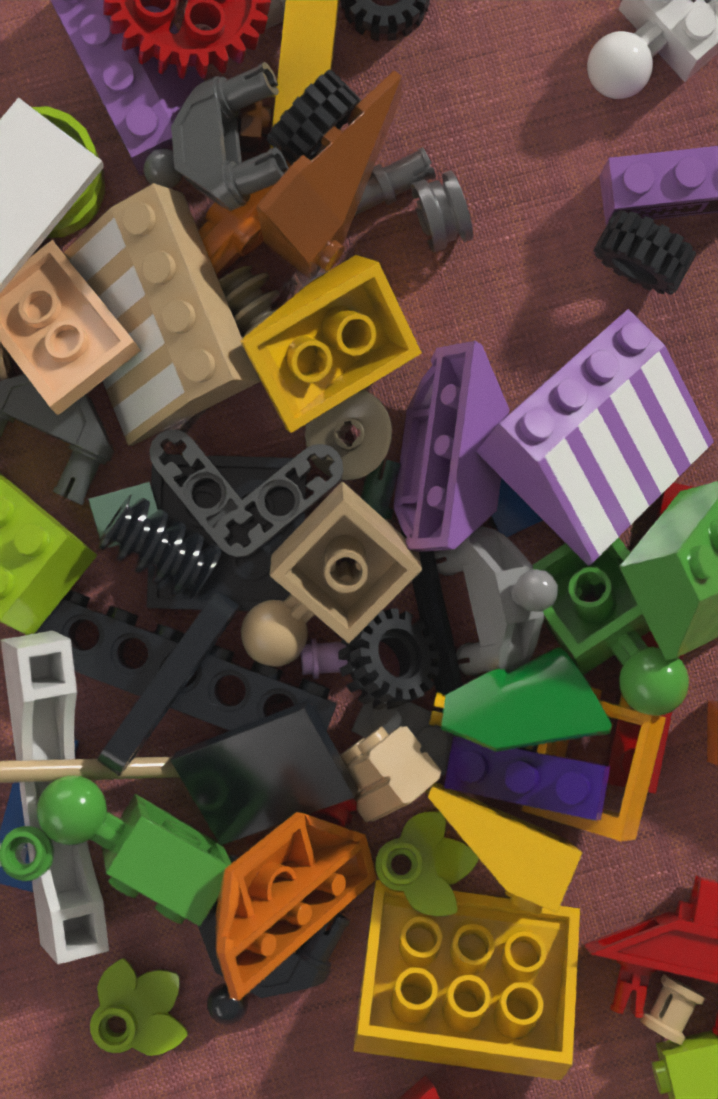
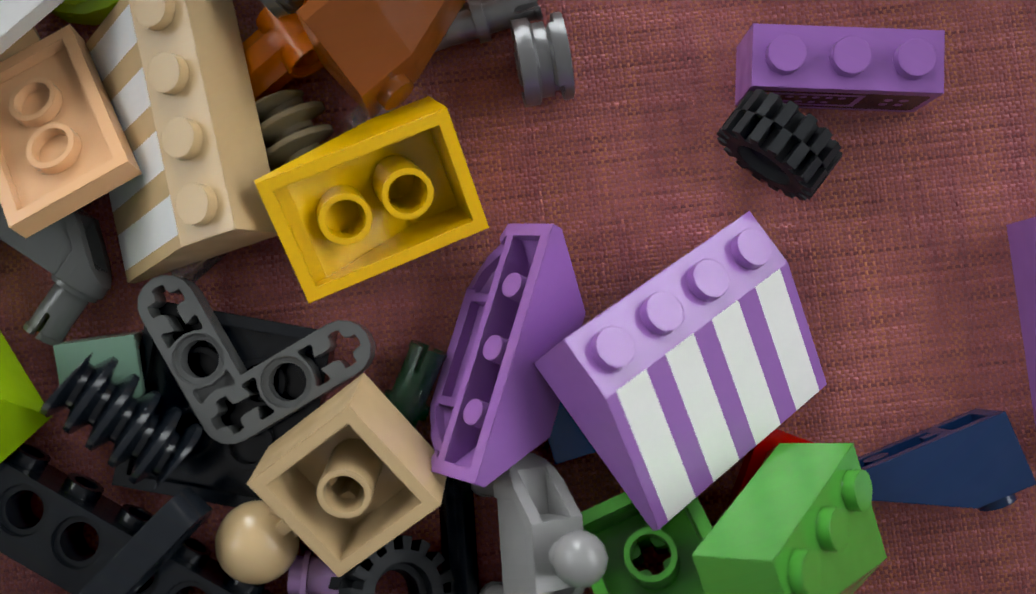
camera: 10 degrees right, 0 degrees up
(366, 451) = (369, 305): dark tan piece -> none

